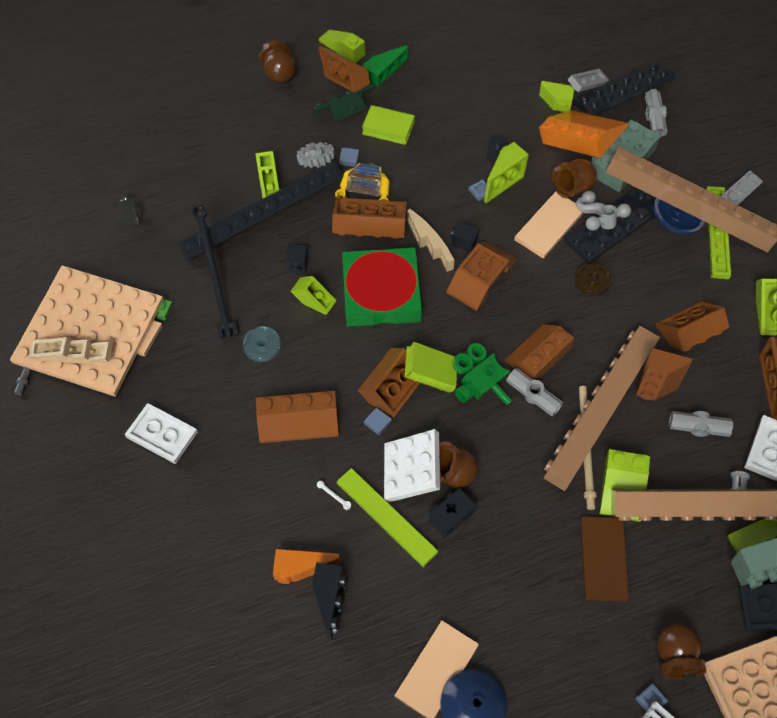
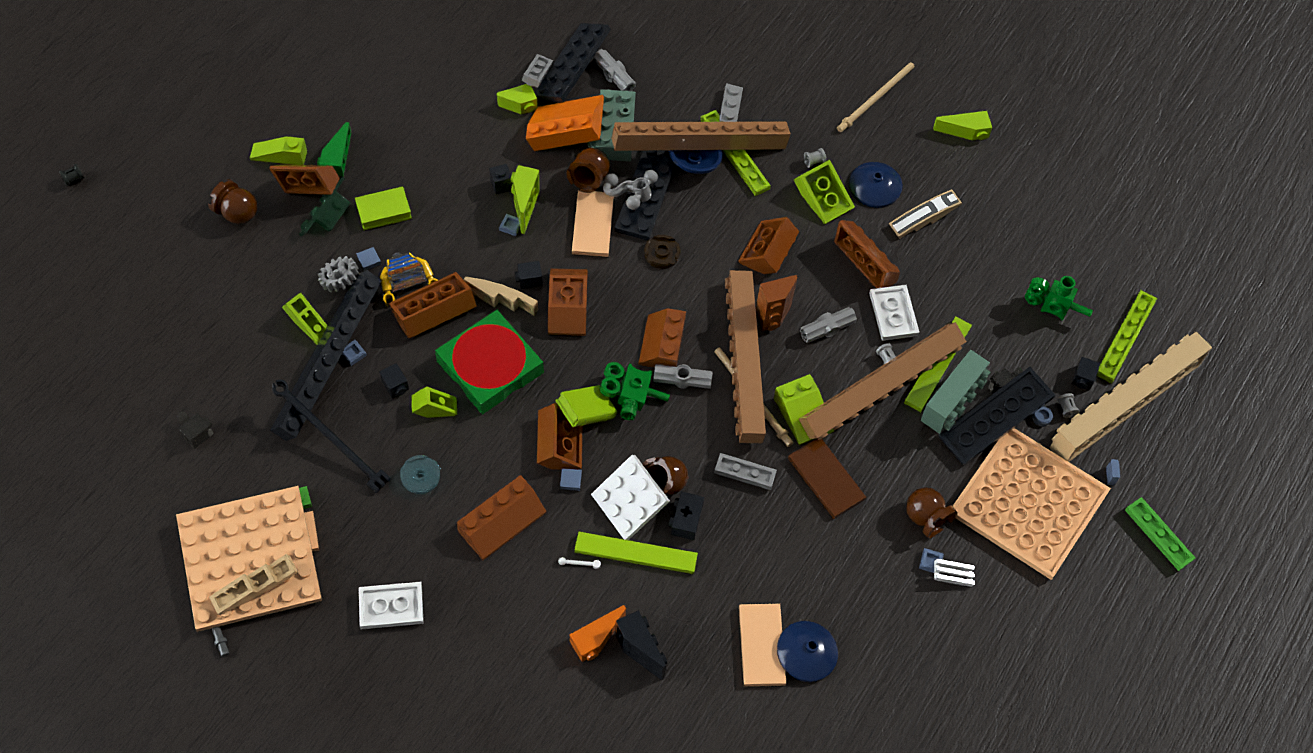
camera: 40 degrees left, 0 degrees up
(283, 221) = (353, 353): none -> sand blue tile
(532, 507) = (745, 471): none -> light grey plate

